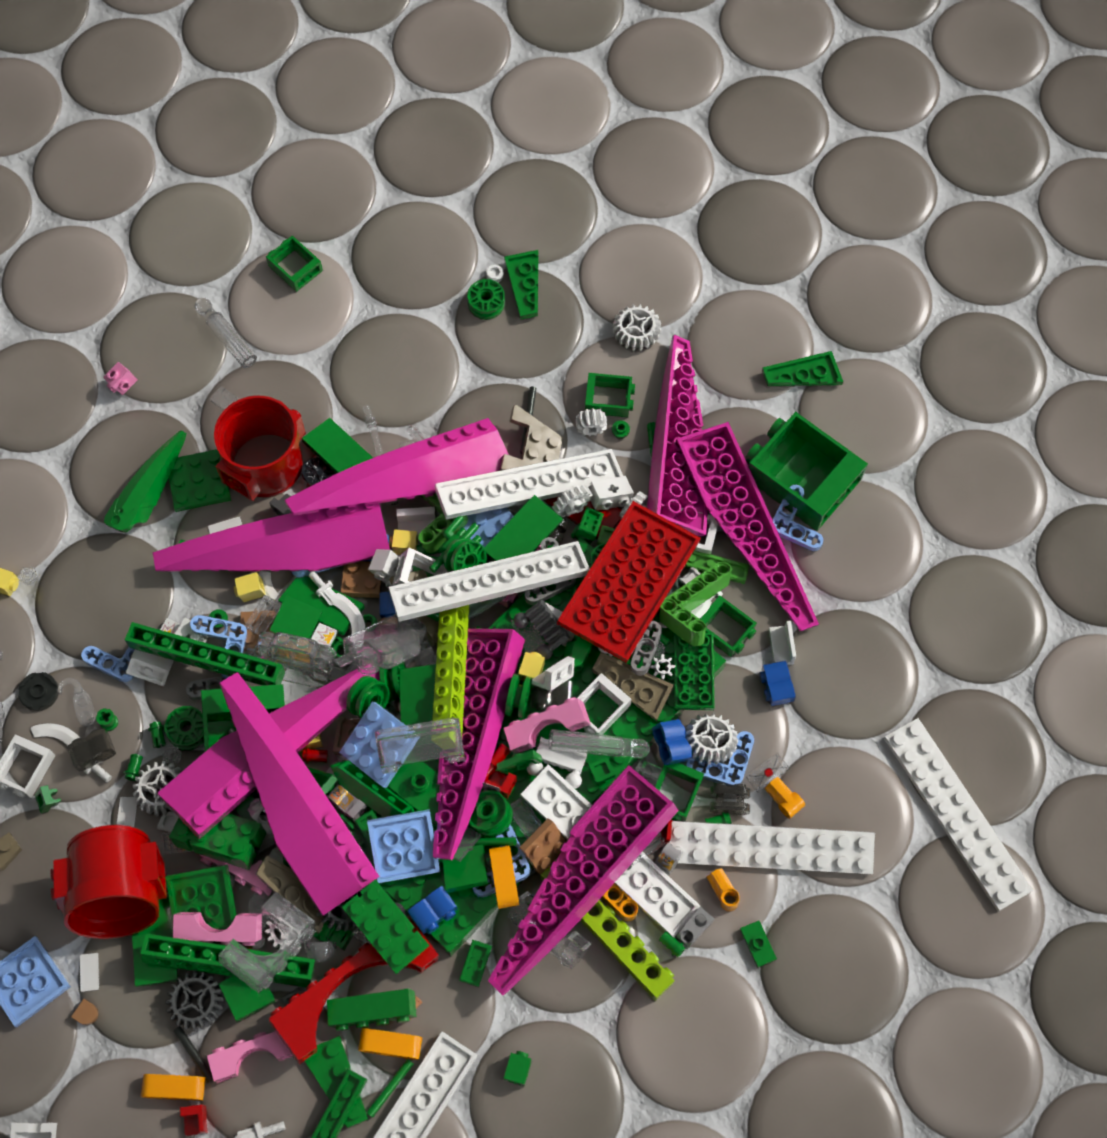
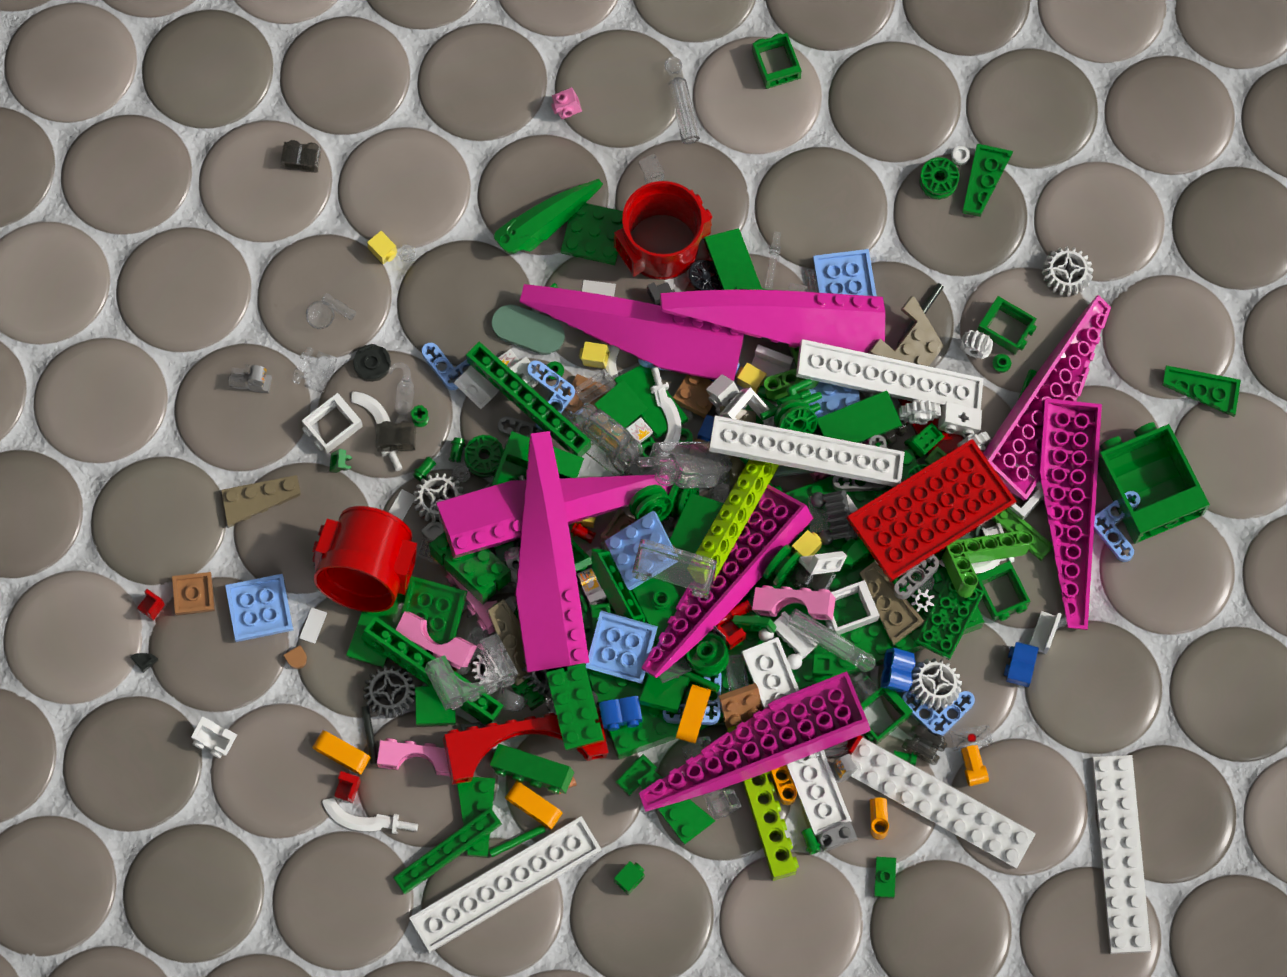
camera: 25 degrees right, 5 degrees up
(175, 593) = (528, 329): none -> sand green tile
(443, 413) = (845, 273): none -> light blue plate
(541, 983) = (683, 817): none -> green wing

